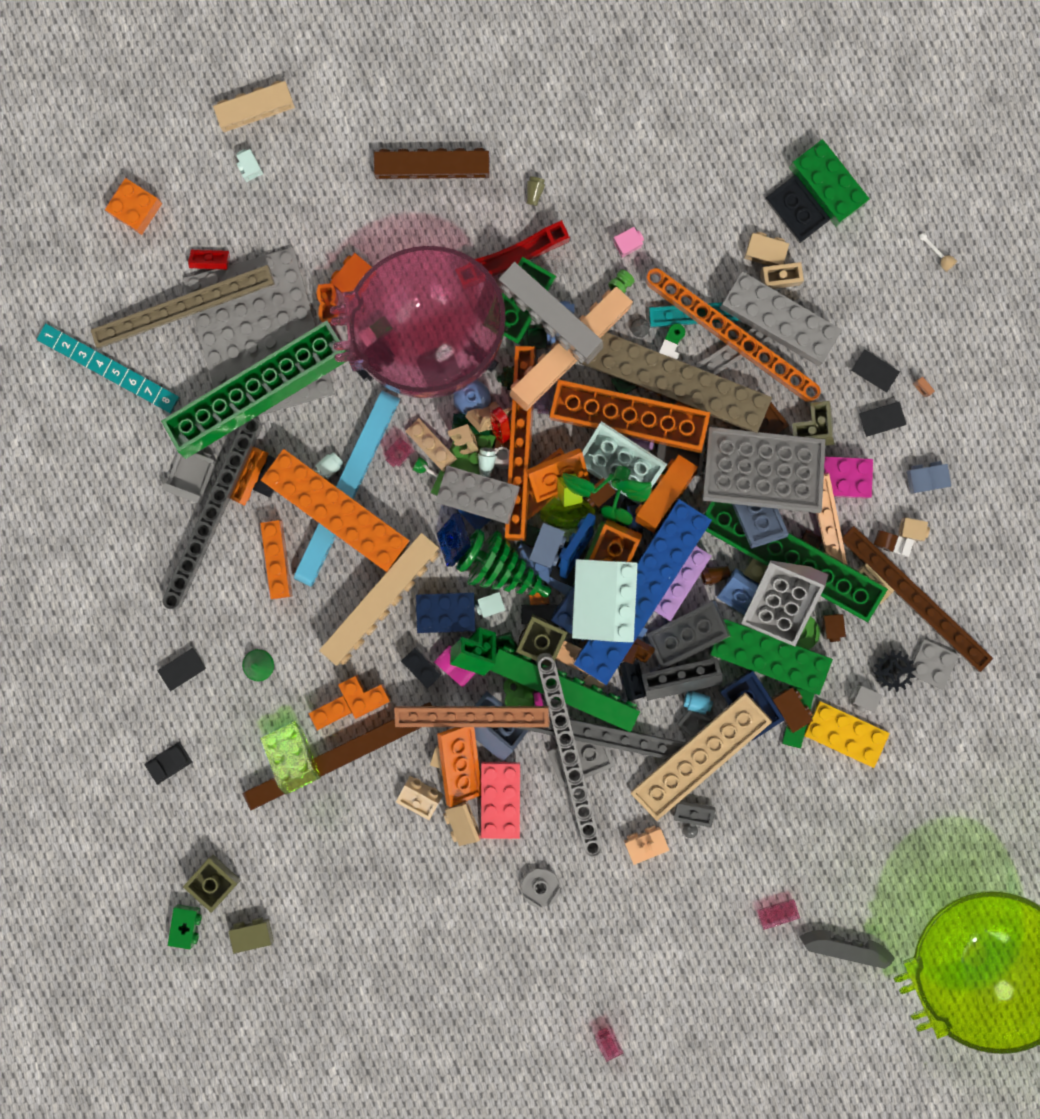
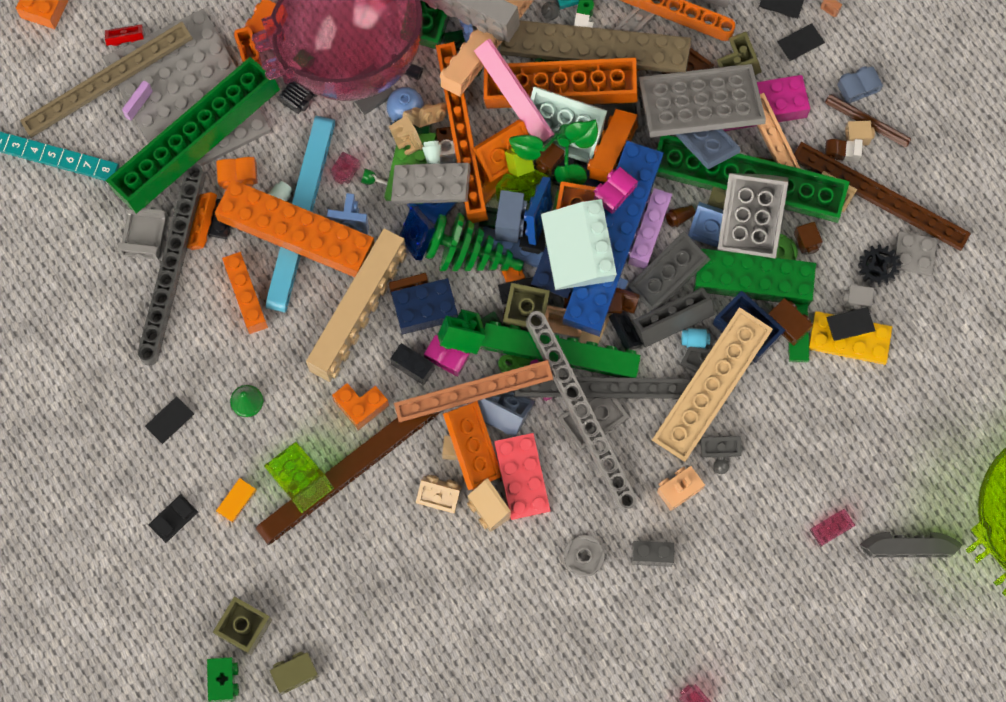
camera: 15 degrees left, 15 degrees down
(208, 337) = (137, 100): none -> lavender tile
(229, 760) = (236, 500): none -> light orange tile
(292, 432) = (240, 169): none -> orange brick
(330, 713) = (330, 427): orange brick -> none
(395, 500) = (350, 216): none -> medium blue bracket
(427, 587) = (408, 282): none -> reddish brown plate
(430, 444) = (374, 154): tan plate -> none
(490, 605) = (467, 290): light aqua brick -> none
(500, 425) = (438, 112): red beam -> none
(506, 377) = (434, 79): plant -> none
(544, 404) = (475, 93): brick -> none
(580, 421) = (513, 91): none -> bright pink tile
(604, 901) = (652, 553): none -> dark grey brick
(654, 552) = (615, 190): none -> dark pink brick
(850, 726) = (850, 324): none -> black piece
(926, 516) = (859, 115): none -> reddish brown axle

